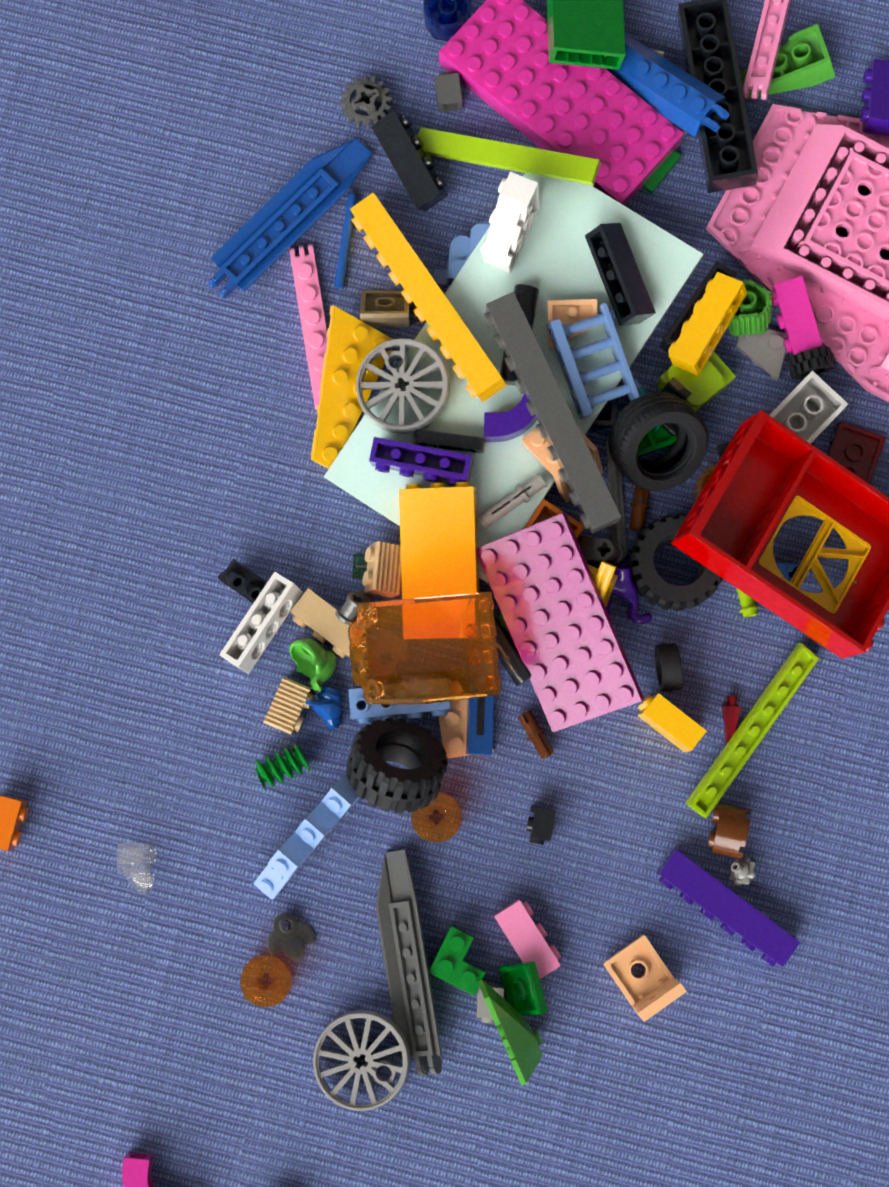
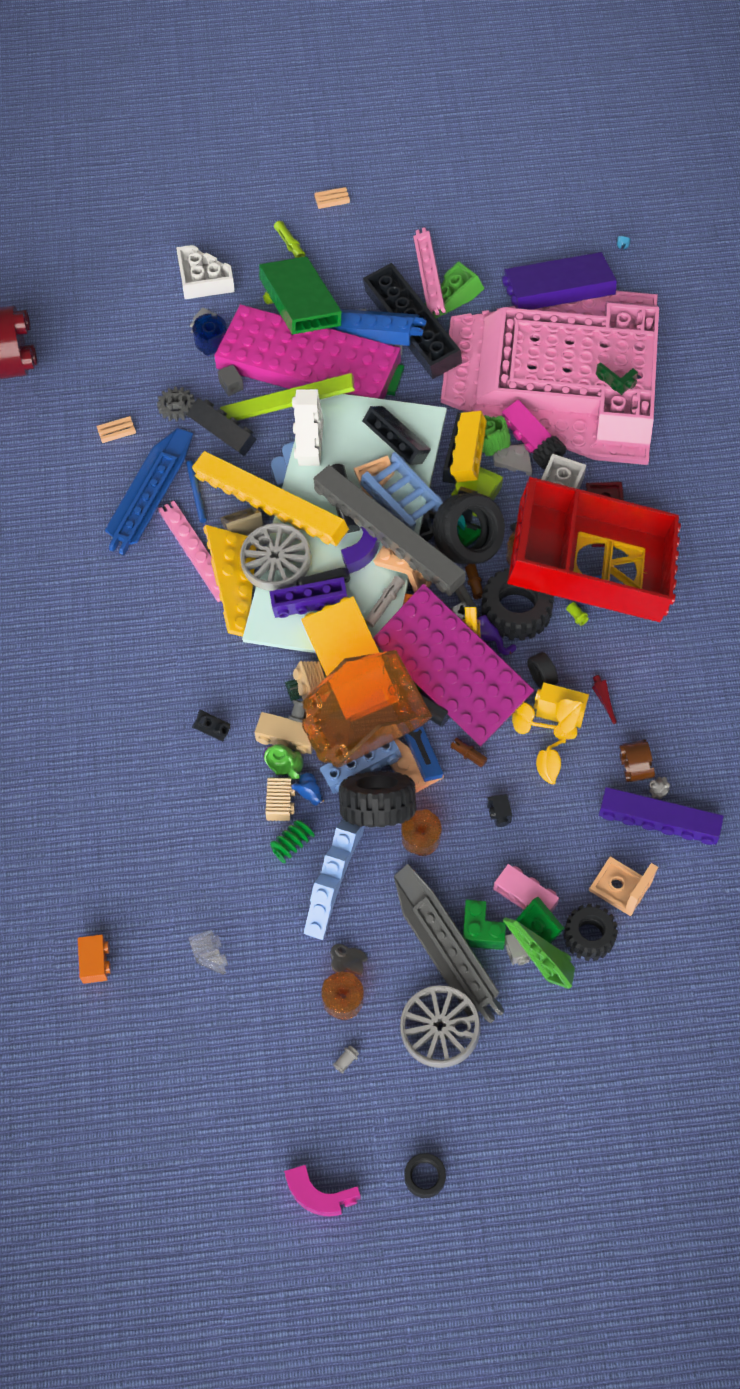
camera: 20 degrees left, 20 degrees down
(243, 1052) = (346, 1059): none -> light grey pin
(261, 623) = (236, 748): white brick -> none
(285, 102) = (114, 427): none -> light nougat tile
(595, 1035) = (595, 917): none -> black tyre
(664, 754) = (567, 714): none -> yellow plant
(752, 730) = (621, 695): lime tile -> none

